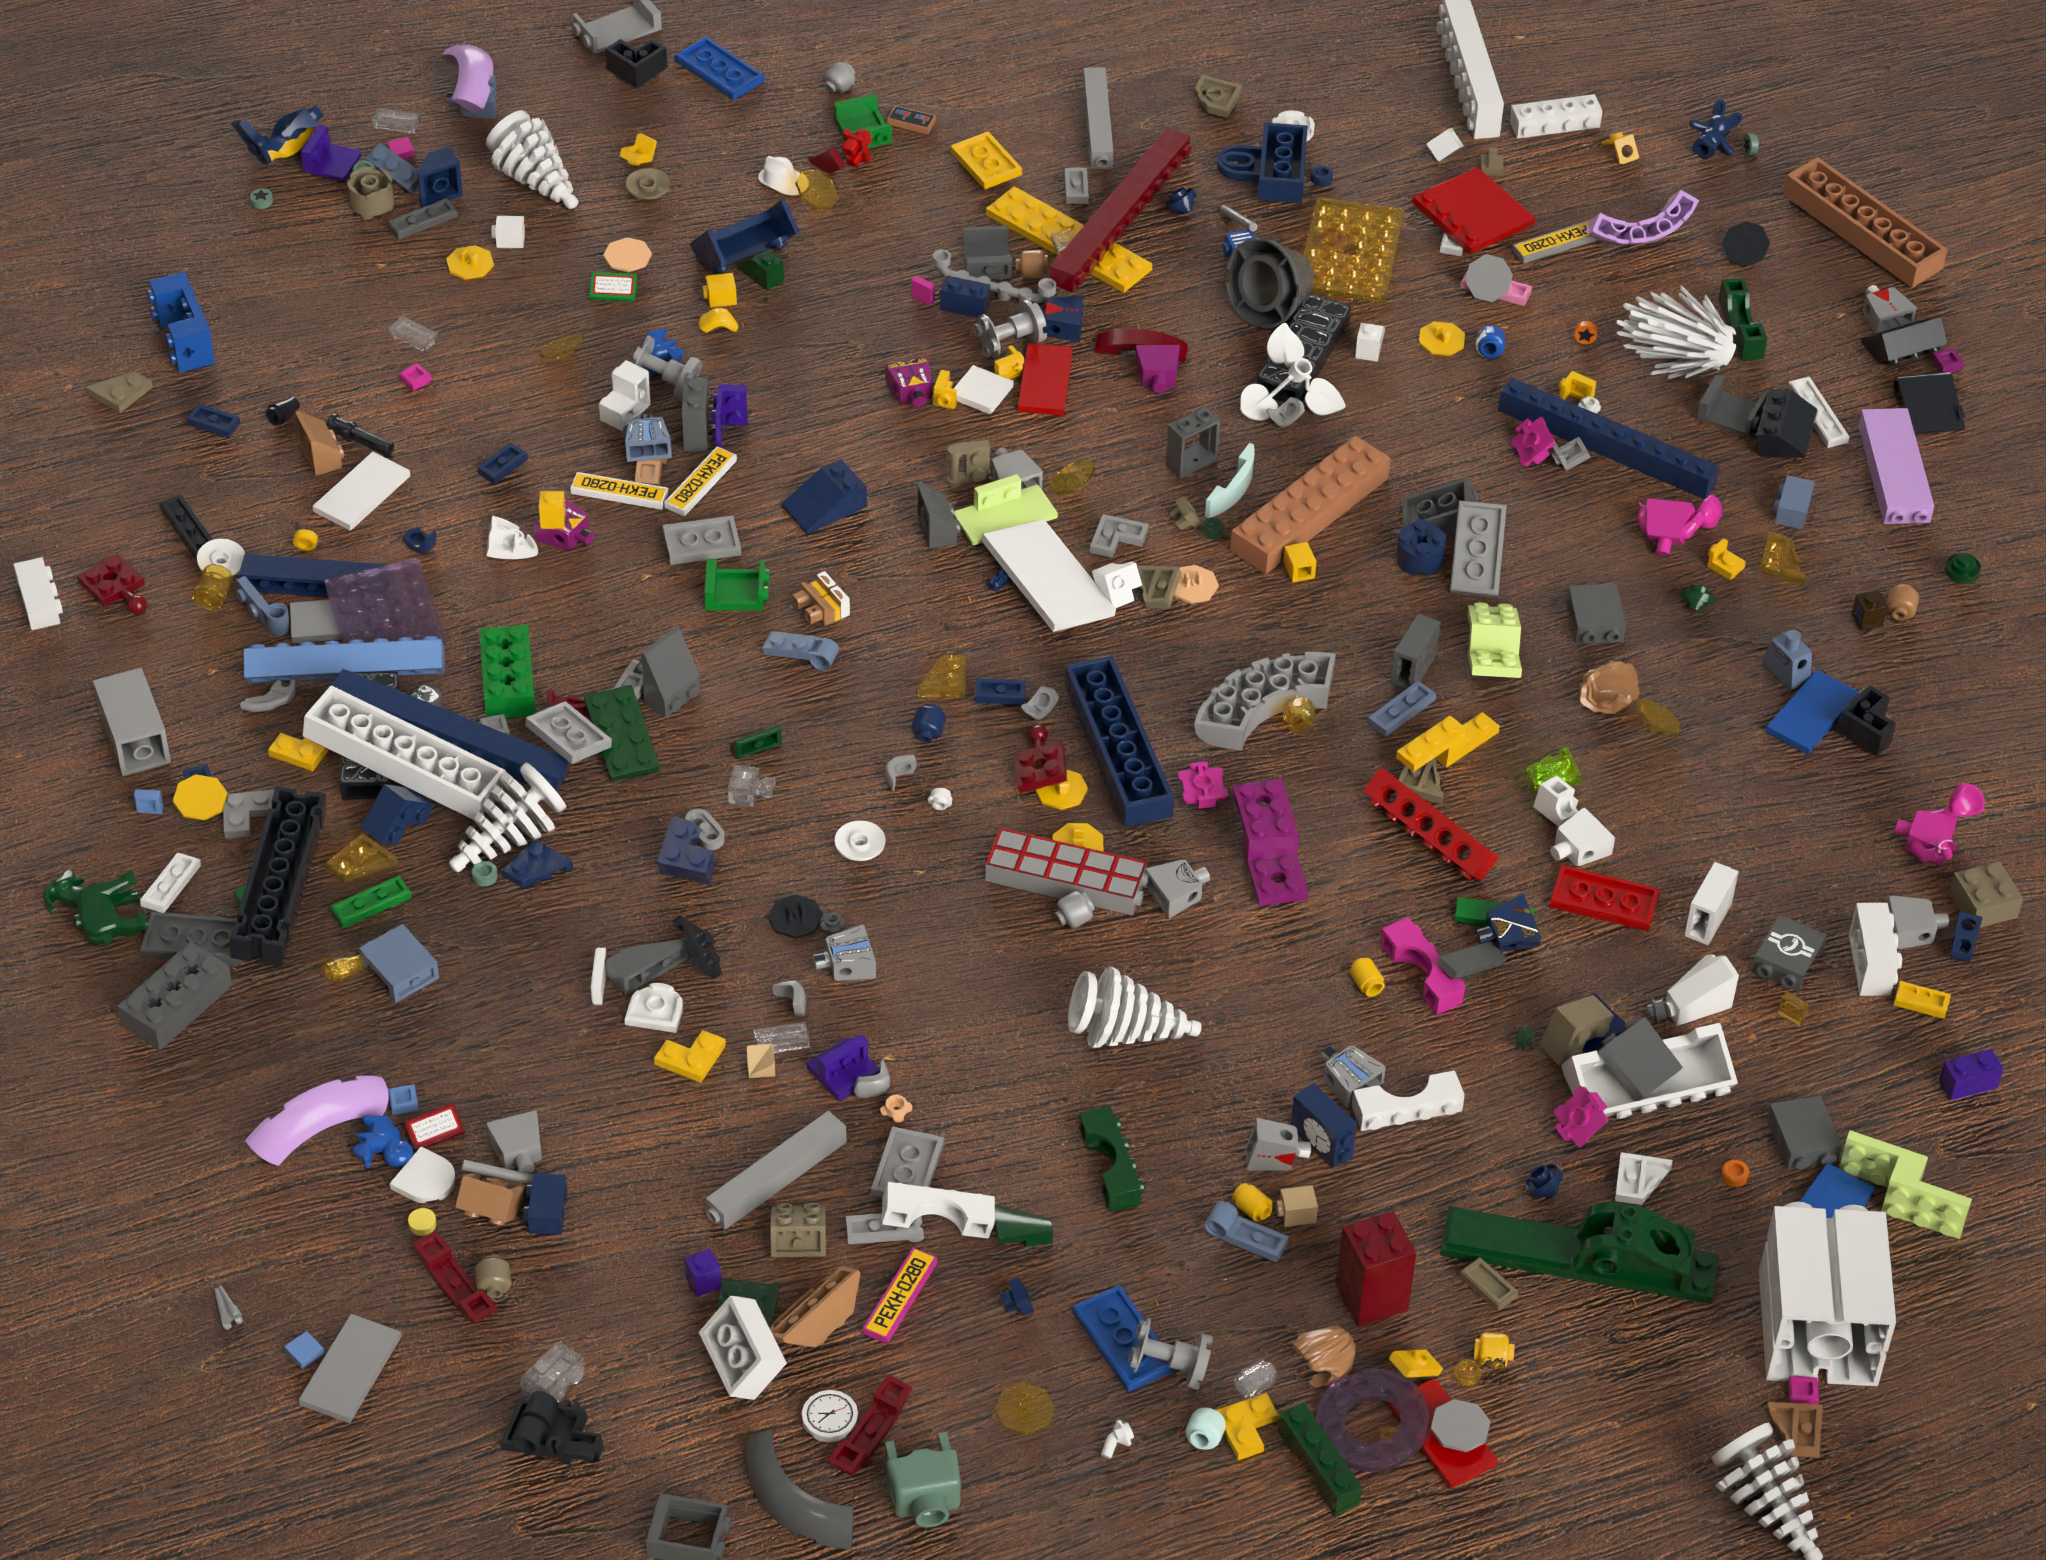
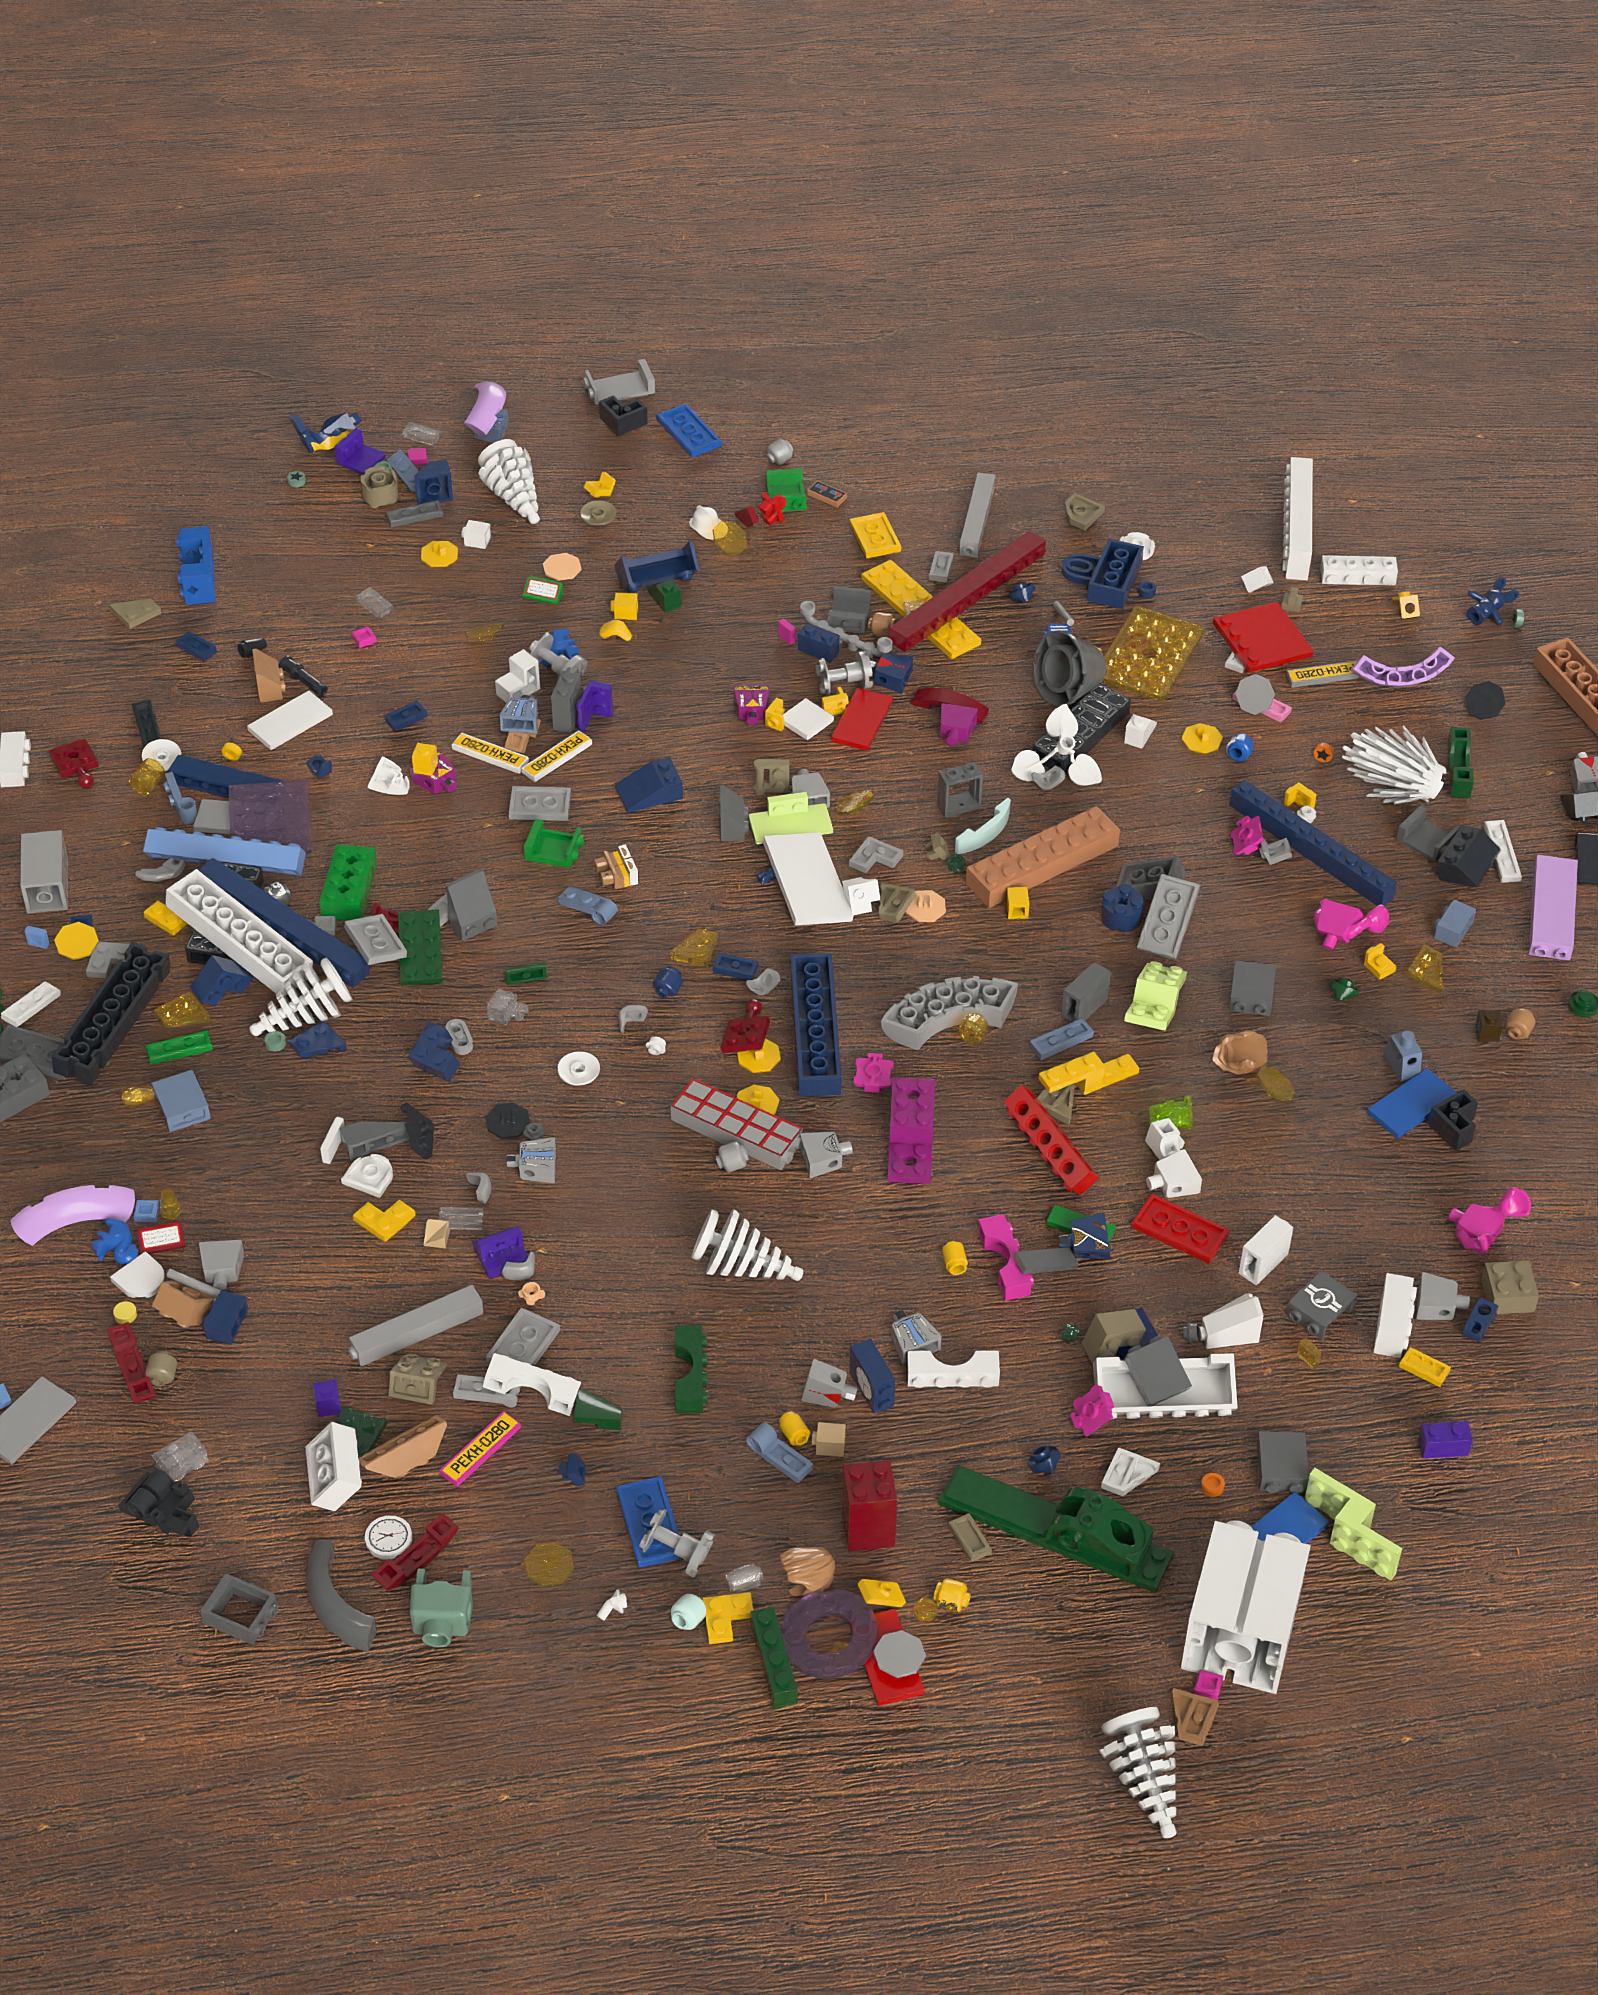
camera: 15 degrees right, 0 degrees up
(431, 1087) = (169, 1205): none -> clear yellow cone

